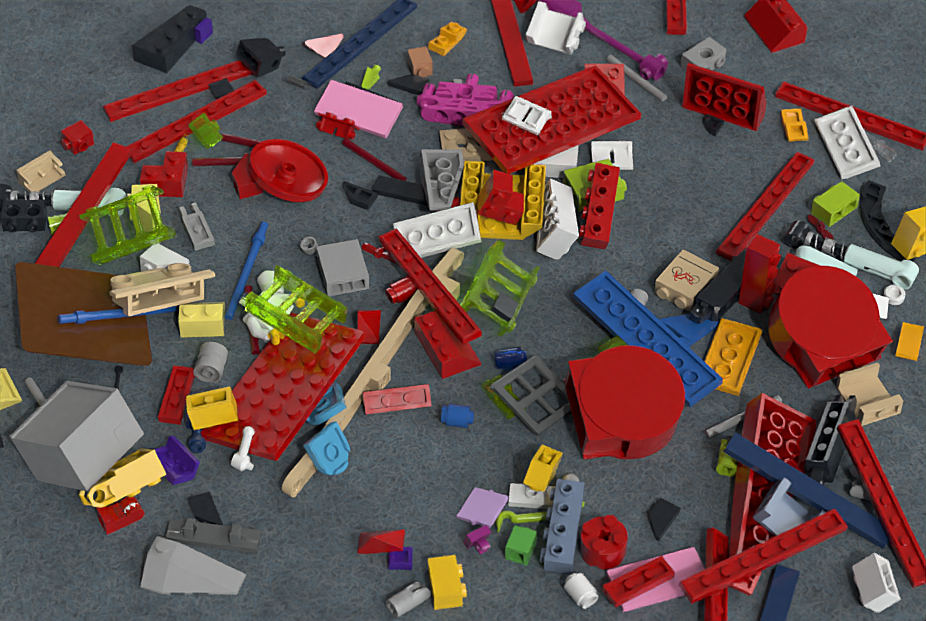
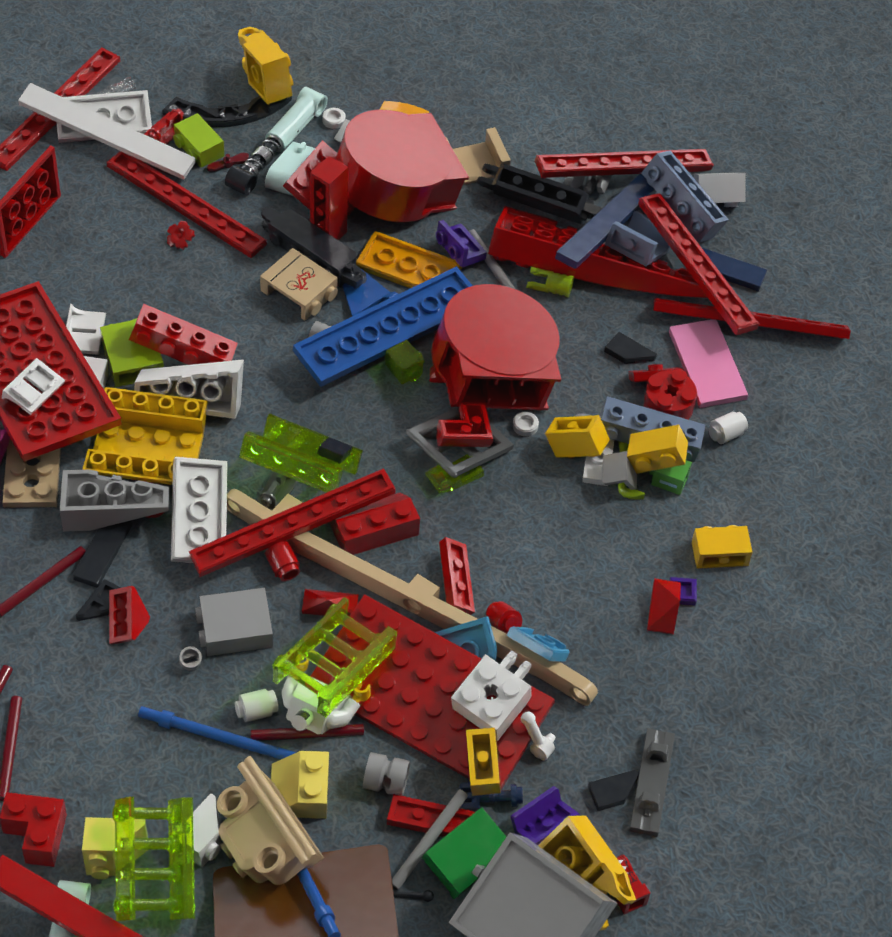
camera: 90 degrees left, 5 degrees up
(149, 411) = (462, 849): none -> green container
(180, 398) = (429, 838): none -> light grey bar
(181, 569) = (709, 812): light grey wedge -> none
(196, 228) = (145, 789): light grey hinge -> none
(243, 181) = (52, 727): red slope -> none
(266, 407) = (493, 679): none -> white hinge
(287, 170) = (57, 672): red dish -> none
(343, 209) = (126, 615): none -> red slope
(356, 427) = (503, 616): none -> red brick
(378, 253) = (208, 584): red piece -> none
(407, 599) = (744, 587): light grey hinge -> none
(457, 415) = (485, 518): blue brick -> none
(478, 539) = (661, 512): magenta tile -> none
(482, 507) = (614, 507): lavender piece -> none
(499, 200) = (170, 430): red brick -> none
(510, 358) = (401, 460): clear blue brick -> none
(513, 503) = (618, 470): none -> light grey panel
(529, 519) = (657, 449): none -> yellow brick
(538, 395) = (470, 431): none -> red brick
(566, 444) = (525, 424): none -> white tile
(636, 542) = (643, 375): none -> red plate
(638, 581) = (722, 373): red plate -> none
(713, 124) = (44, 230): black tile -> none
(725, 203) = (179, 235): none -> red plant
(755, 382) = (460, 244): none -> dark purple bracket
(794, 125) = (71, 159): light orange slope -> none
(823, 143) = (107, 131): none -> white tile
(833, 177) = (164, 128): none -> red hinge
(850, 547) = (684, 196): none -> sand blue brick

